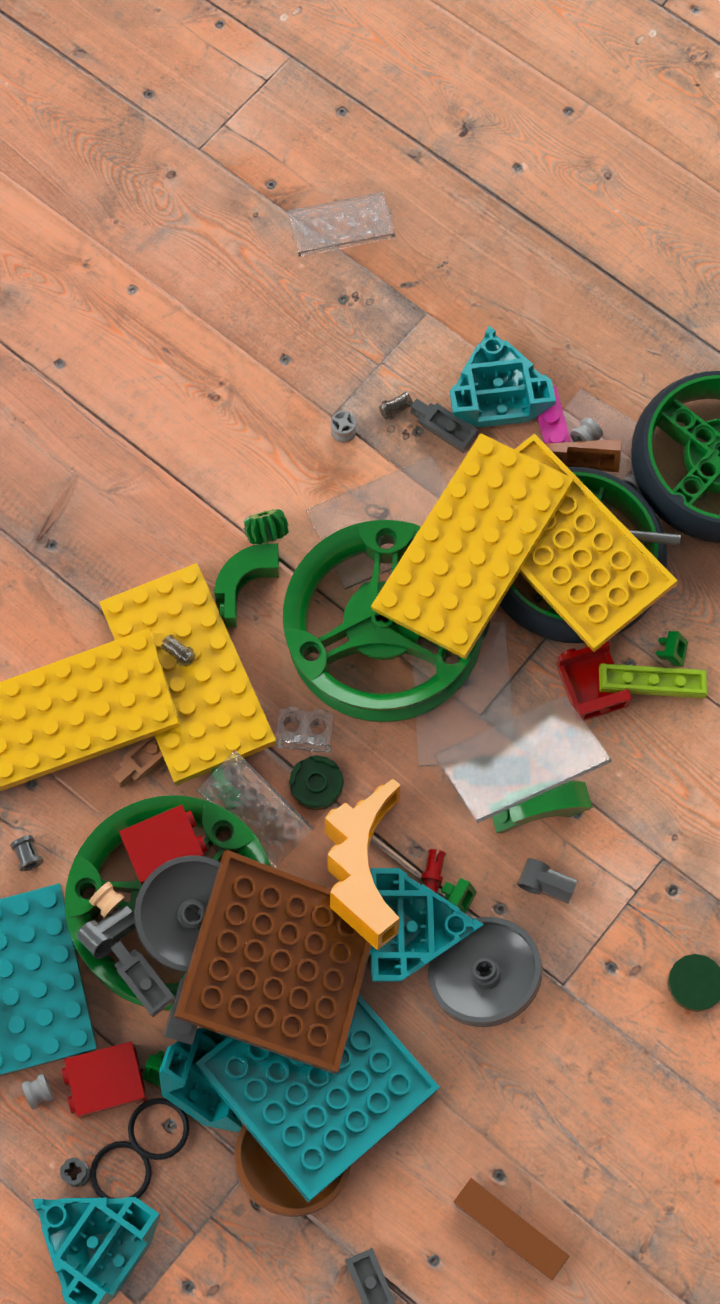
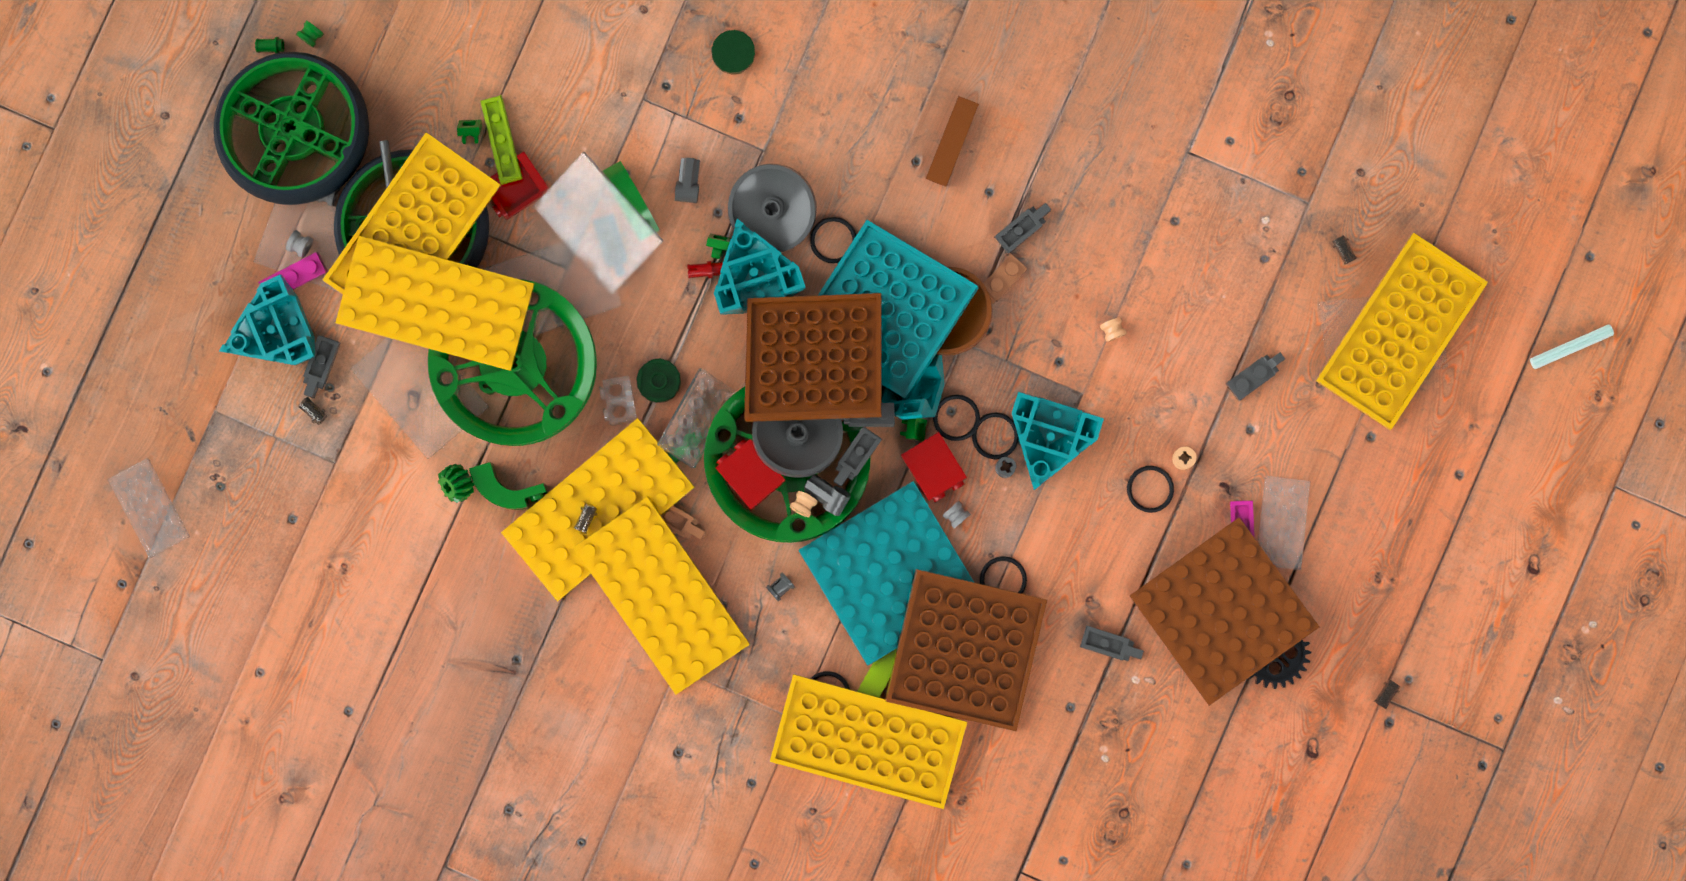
camera: 105 degrees left, 15 degrees up
(315, 1244) = (1004, 278): none -> nougat hinge
(343, 420) = (340, 448): light grey wheel -> none
(355, 894) = (747, 315): light orange arch -> none
(408, 1019) = (817, 226): none -> black tyre
(598, 455) = (319, 236): dark orange slope -> none

